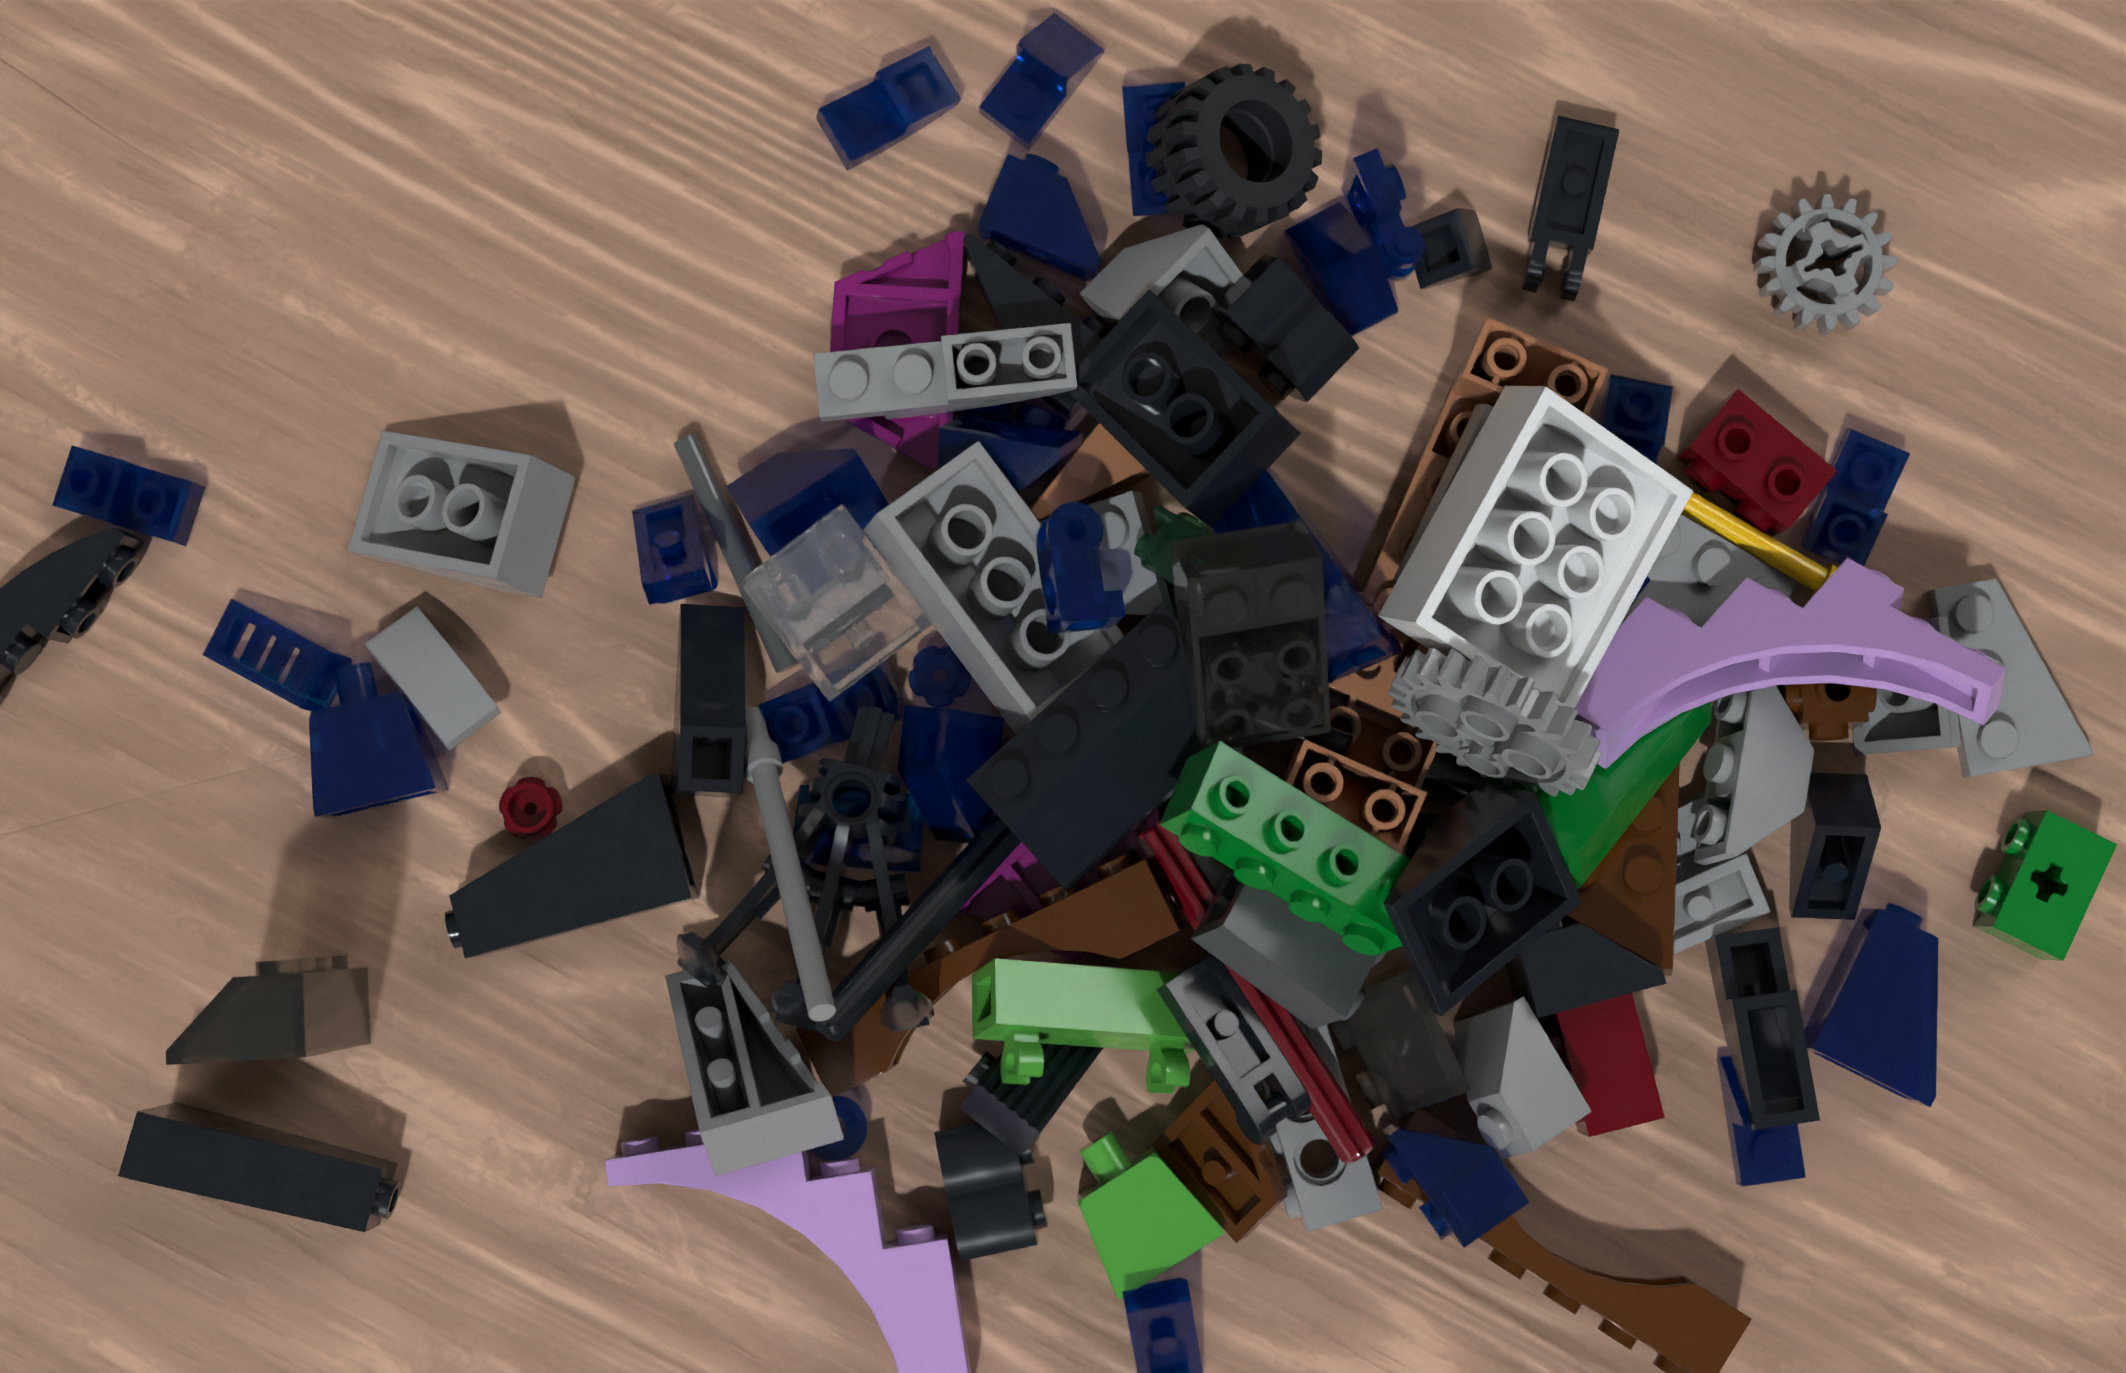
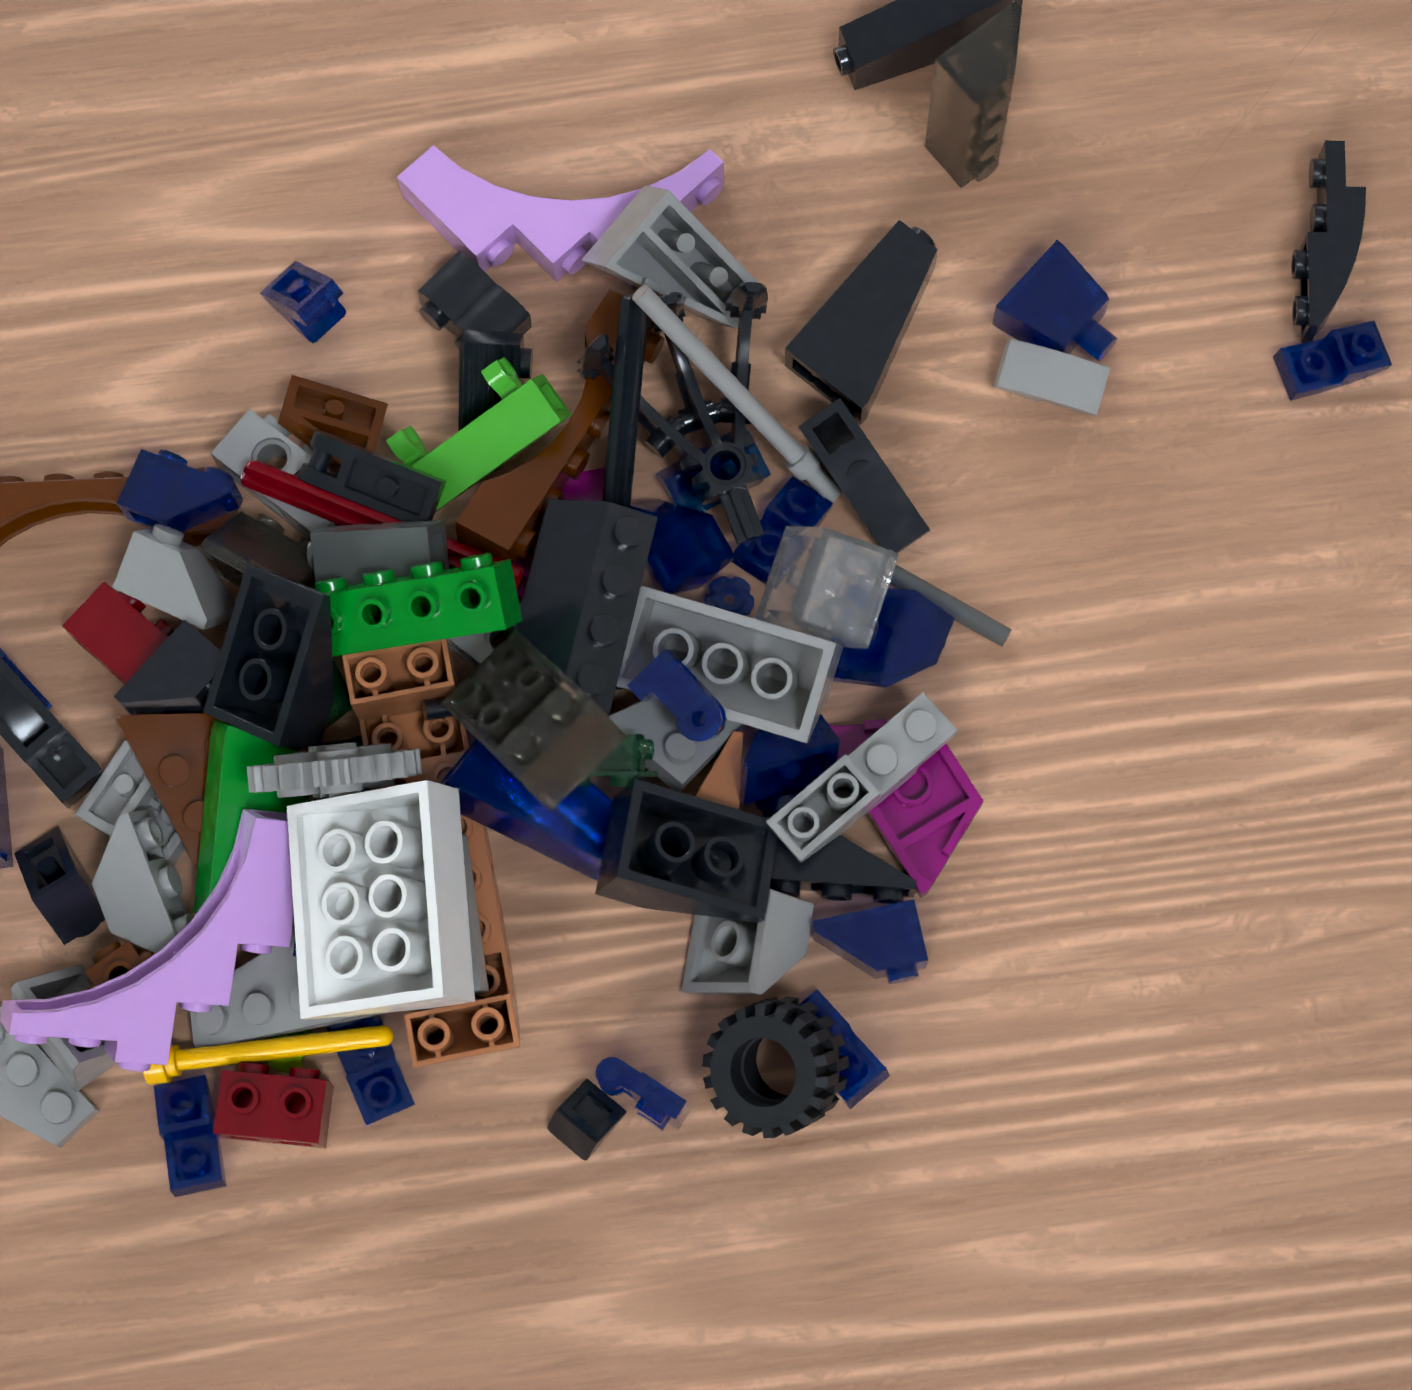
camera: 150 degrees right, 10 degrees down
(311, 677) = (1129, 325): clear blue slope -> none
(463, 512) = (1111, 489): light grey slope -> none
(513, 805) = (930, 331): dark red plate -> none
(673, 551) = (958, 555): clear blue slope -> none
(856, 1130) = (590, 295): clear blue plate -> none
(889, 108) = (1036, 948): clear blue slope -> none
(1040, 80) = (947, 1042): clear blue slope -> none
(1140, 1214) = (366, 353): bright green torso -> none
(1283, 329) = (659, 973): black brick -> none
(1343, 268) = (650, 1049): clear blue slope -> none
(1570, 200) = (523, 1209): black hinge -> none
(1831, 288) = (300, 1306): light grey gear -> none

